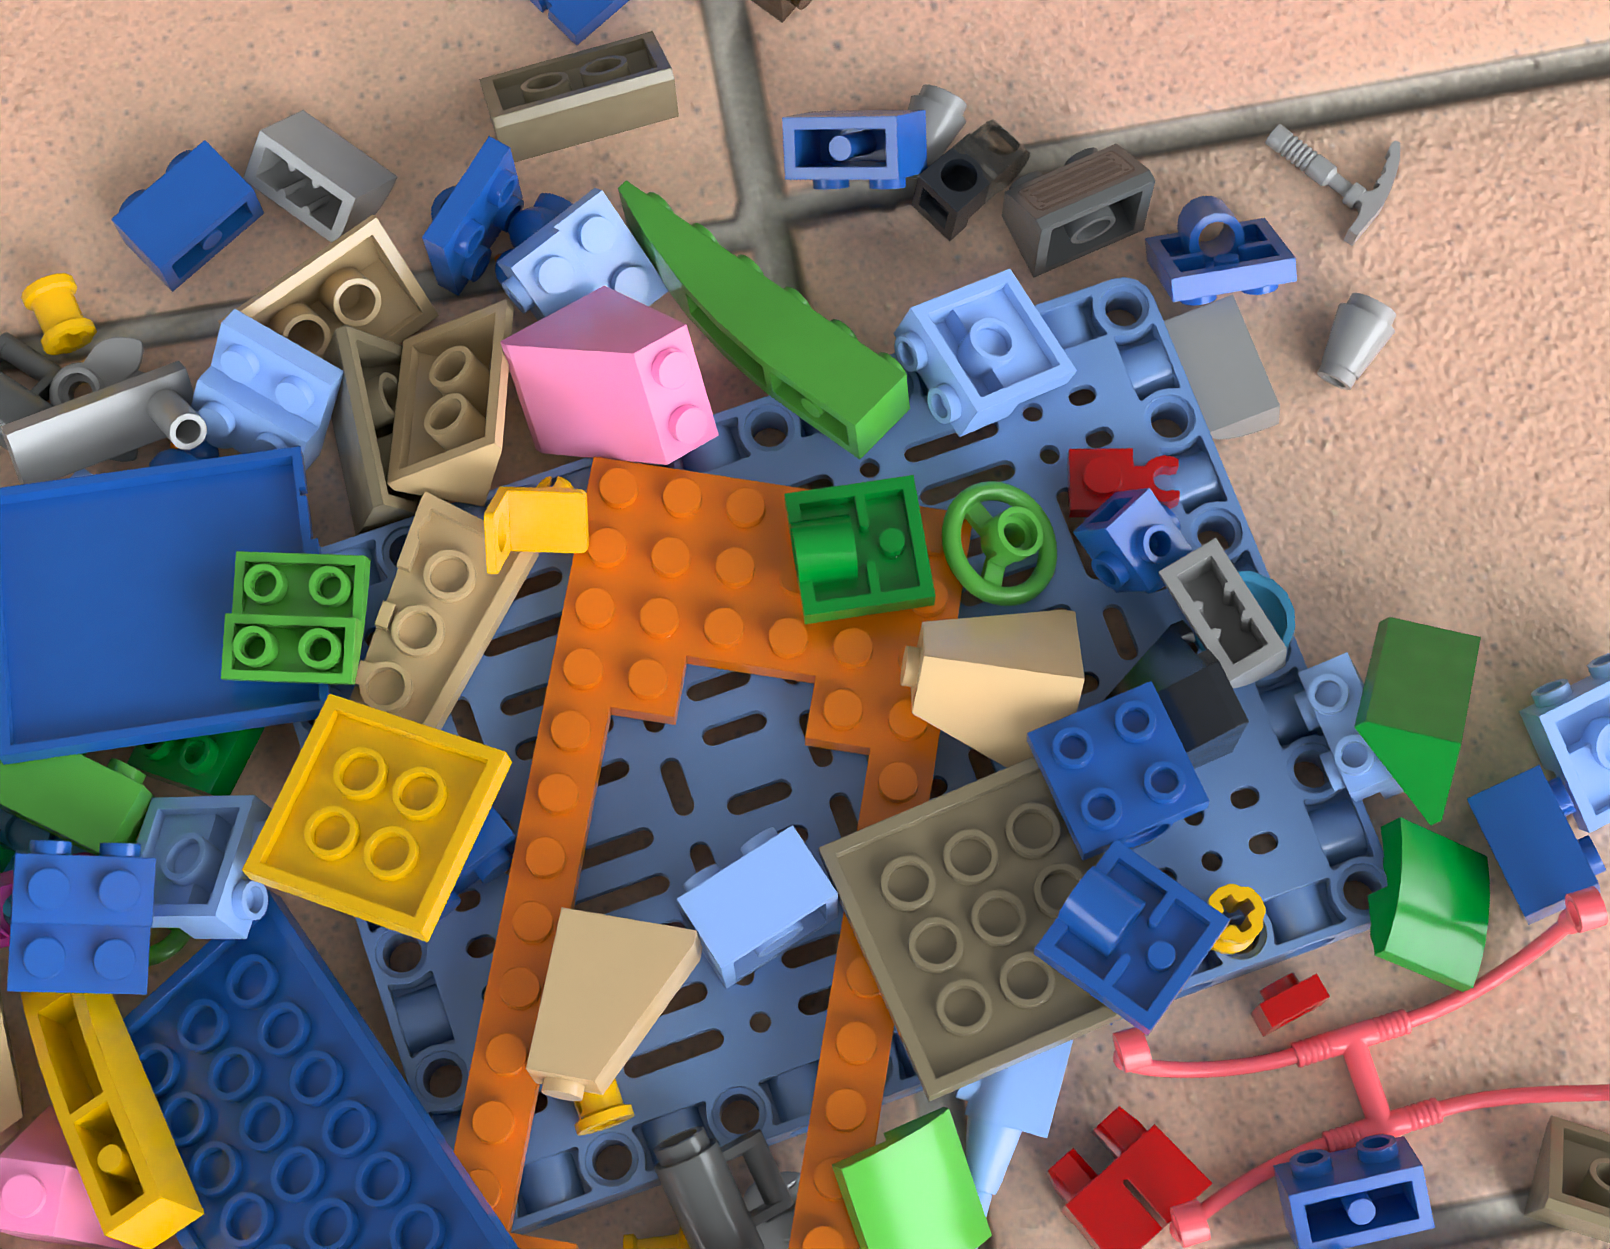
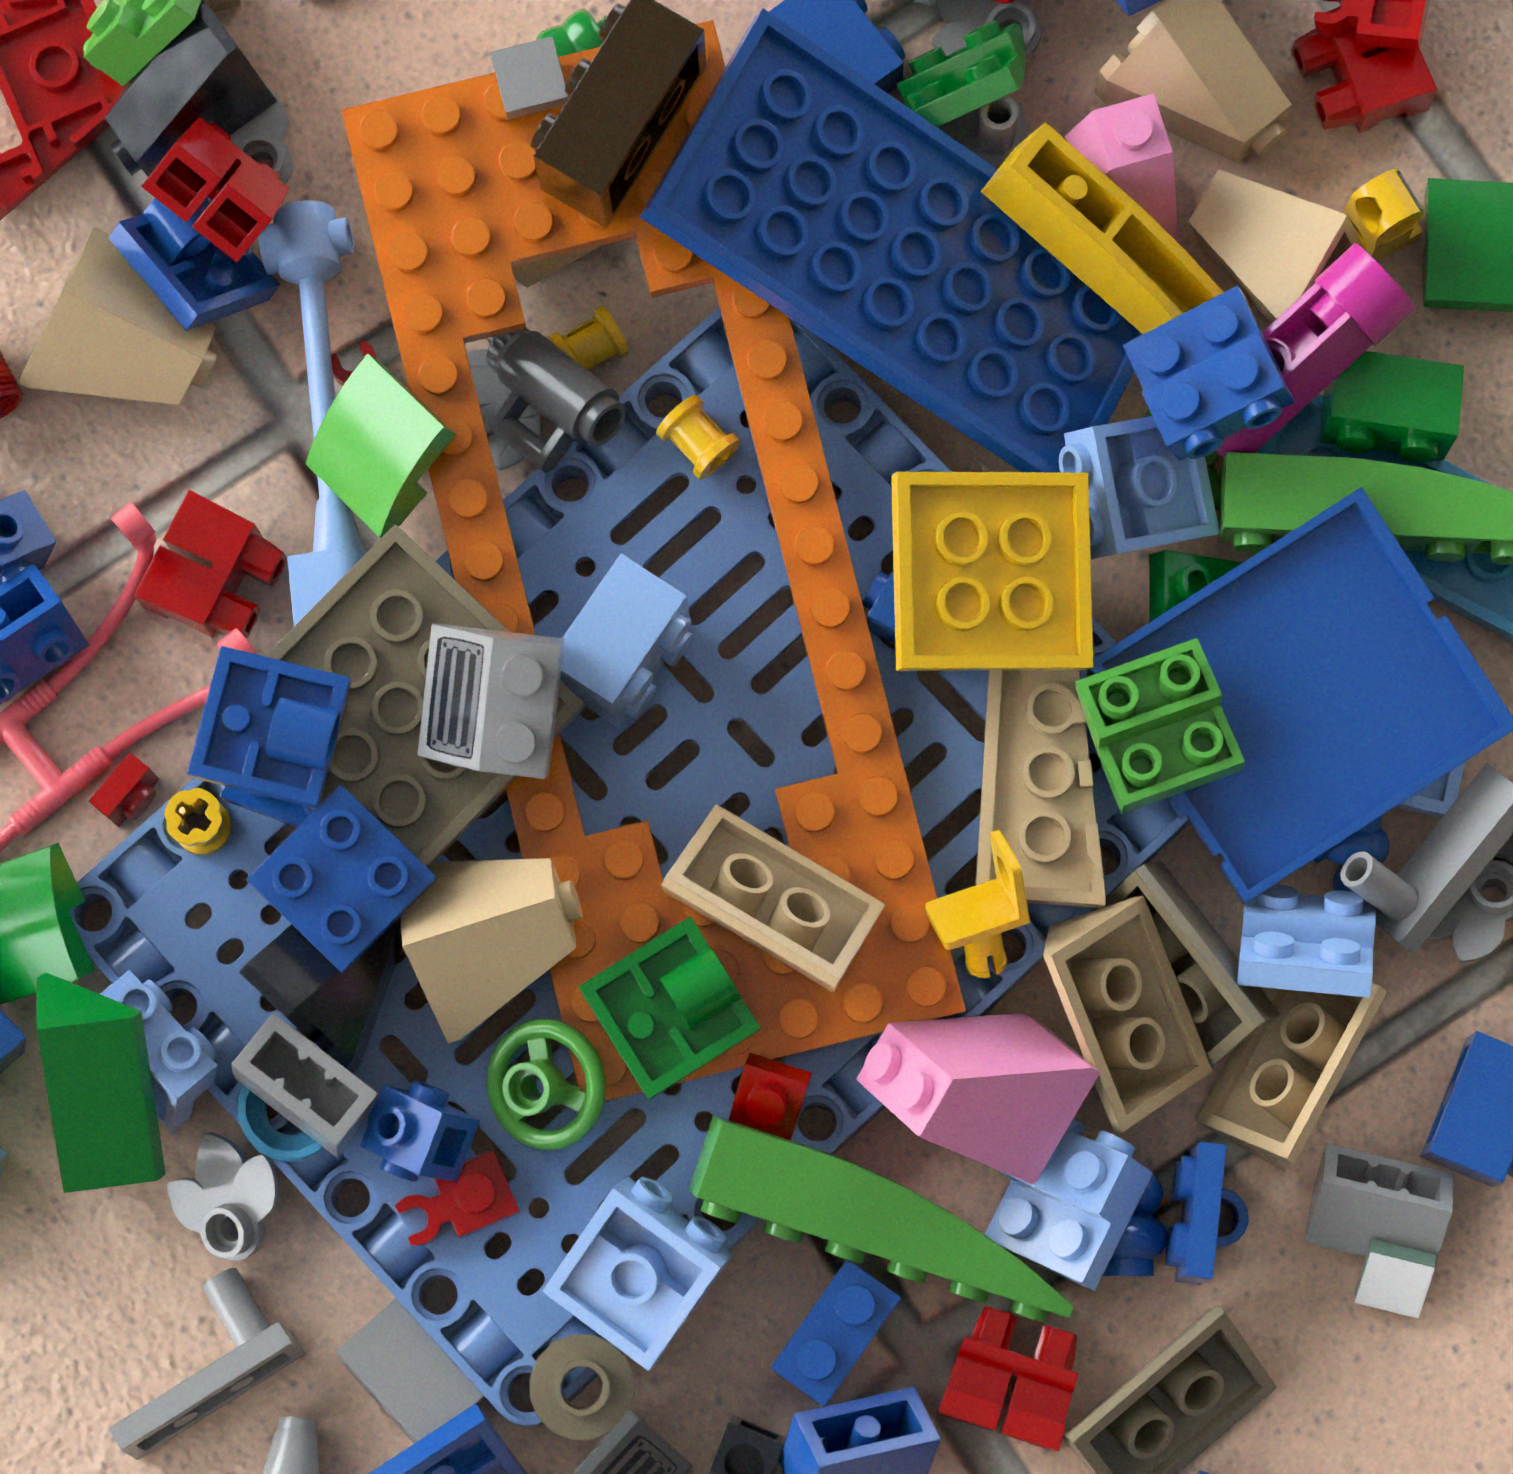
camera: 160 degrees right, 5 degrees up
(336, 115) = (1395, 1278): none -> white tile
(603, 996) = (719, 496): tan slope -> none
(704, 155) = (1040, 1388): none -> red hips
(723, 601) = (773, 897): none -> tan slope
(801, 453) = (770, 1096): none -> red plate
(836, 252) = (835, 1333): none -> blue brick
(905, 866) = (491, 700): none -> light grey slope
(1074, 311) = (557, 1411): none -> dark tan piece
(1330, 589) = (226, 1192): none -> light grey plate
(1349, 444) = (257, 1356): none -> light grey piece

